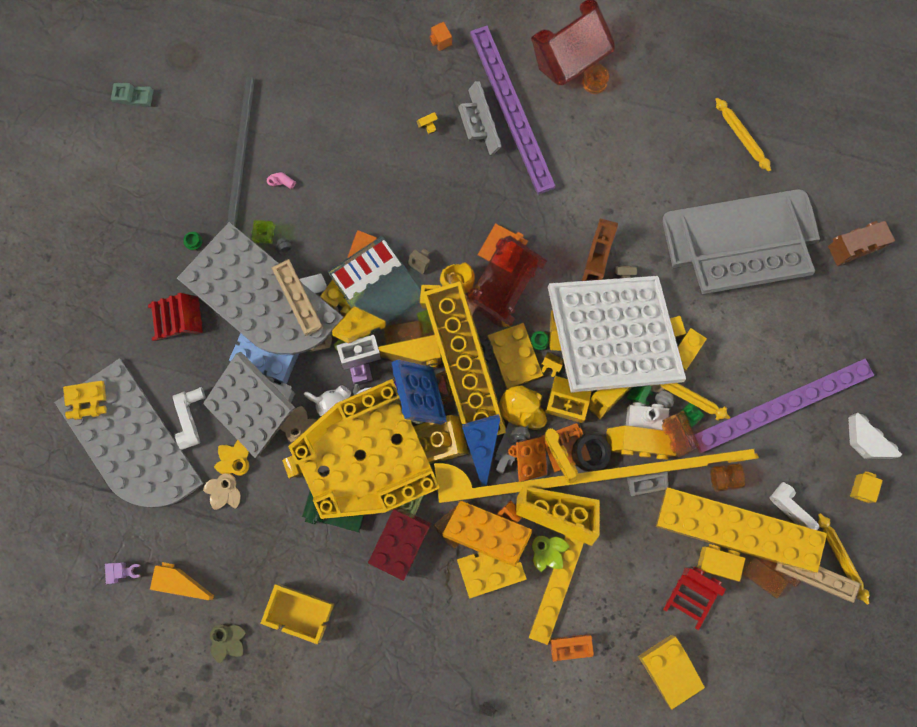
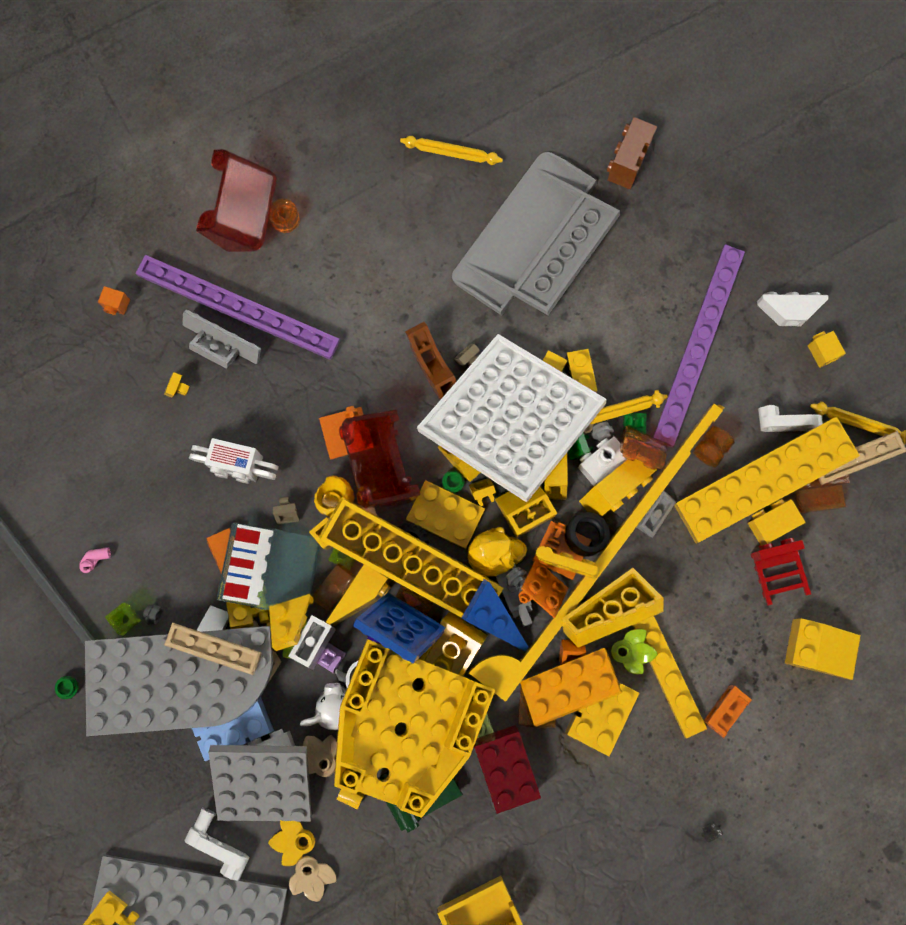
camera: 45 degrees left, 0 degrees up
(184, 316) = (122, 759): red plate -> none
(418, 199) = (233, 460): none -> white brick

